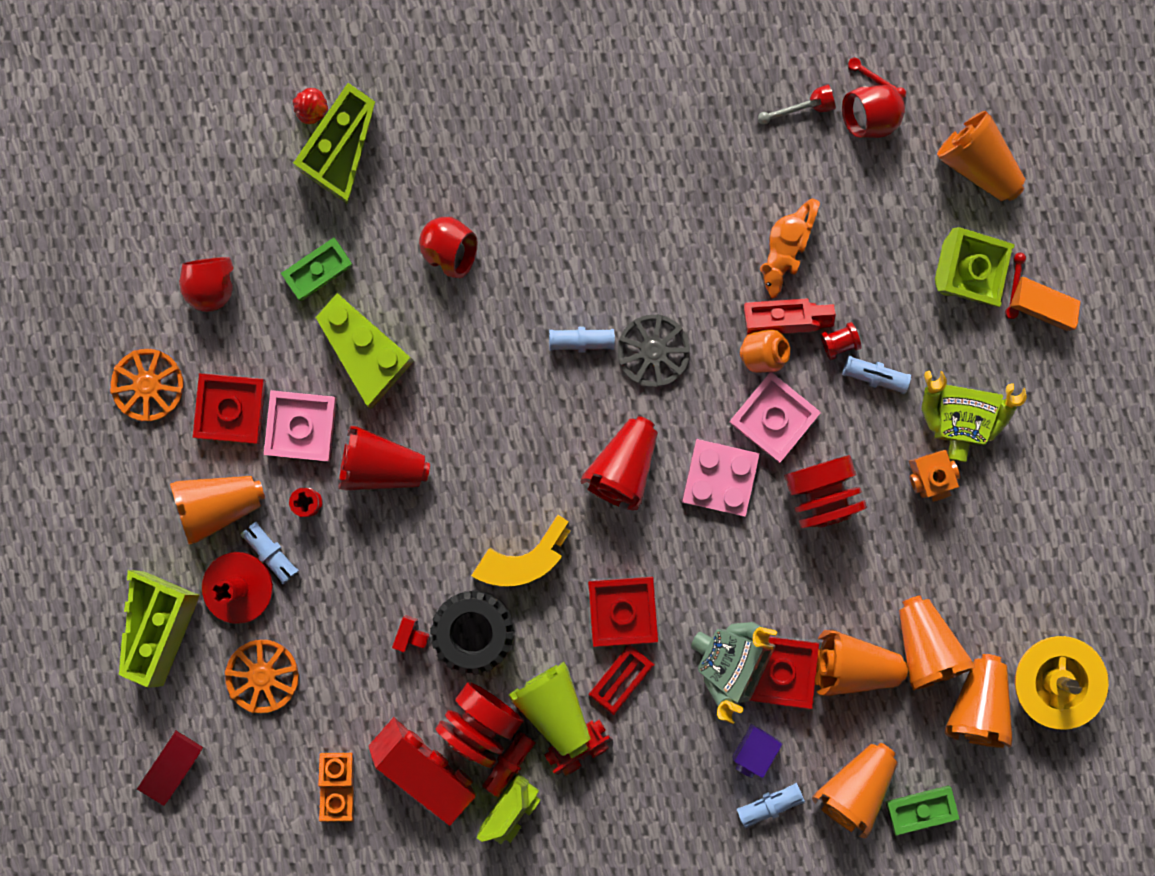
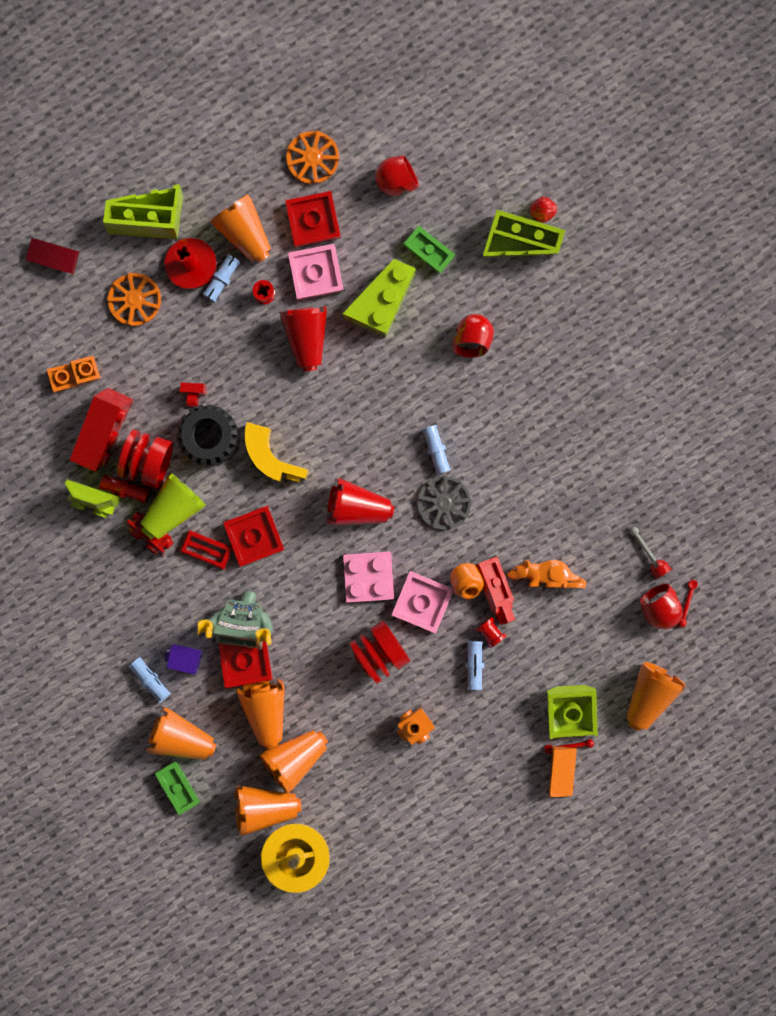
camera: 70 degrees right, 0 degrees up
(966, 414) = (465, 736): lime torso -> none

